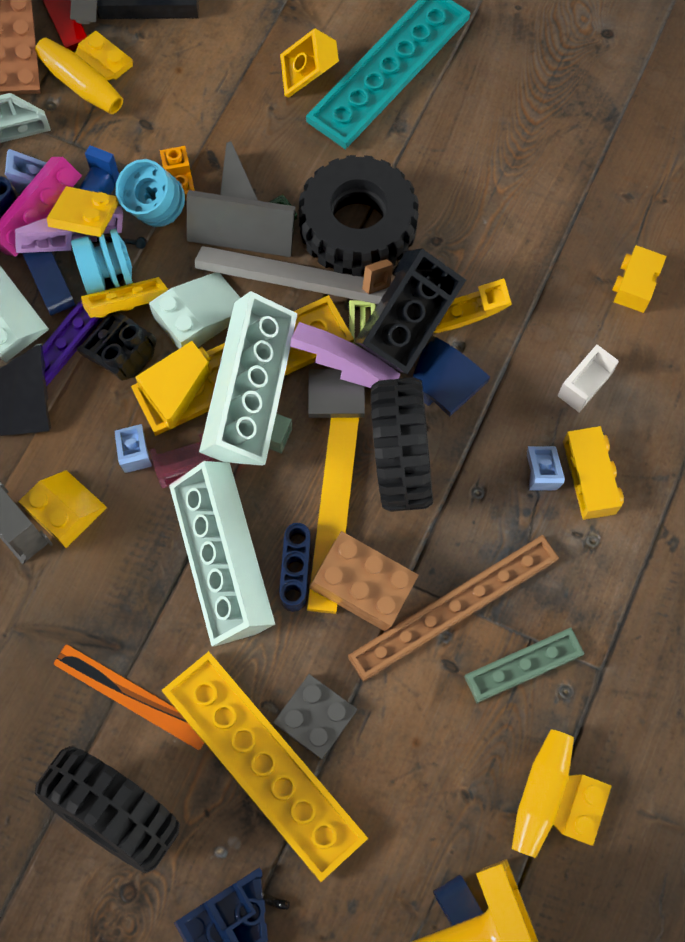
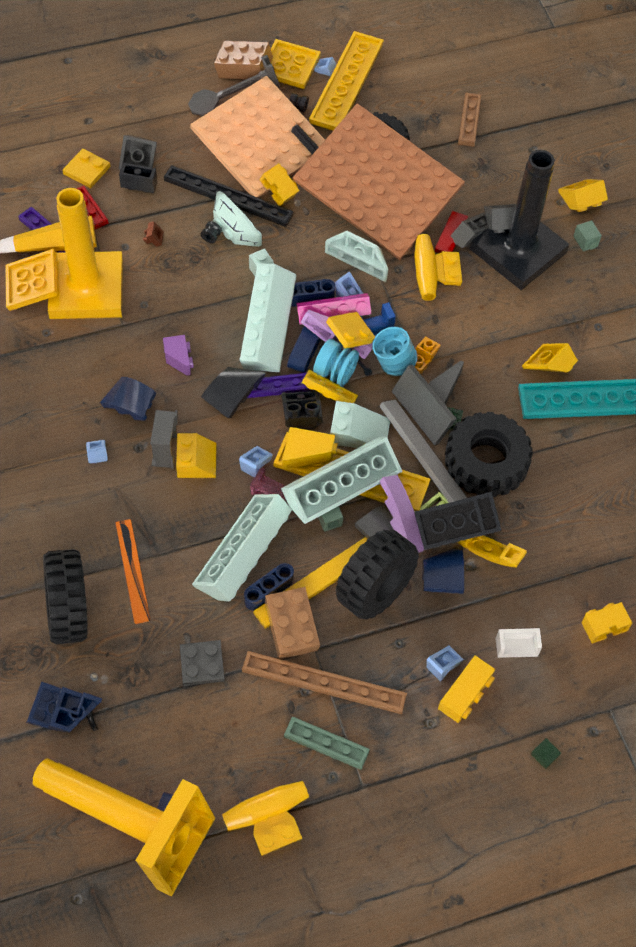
camera: 45 degrees right, 10 degrees down
(265, 766) = (154, 659): yellow plate -> none
(377, 276) = (463, 490): medium nougat plate -> none

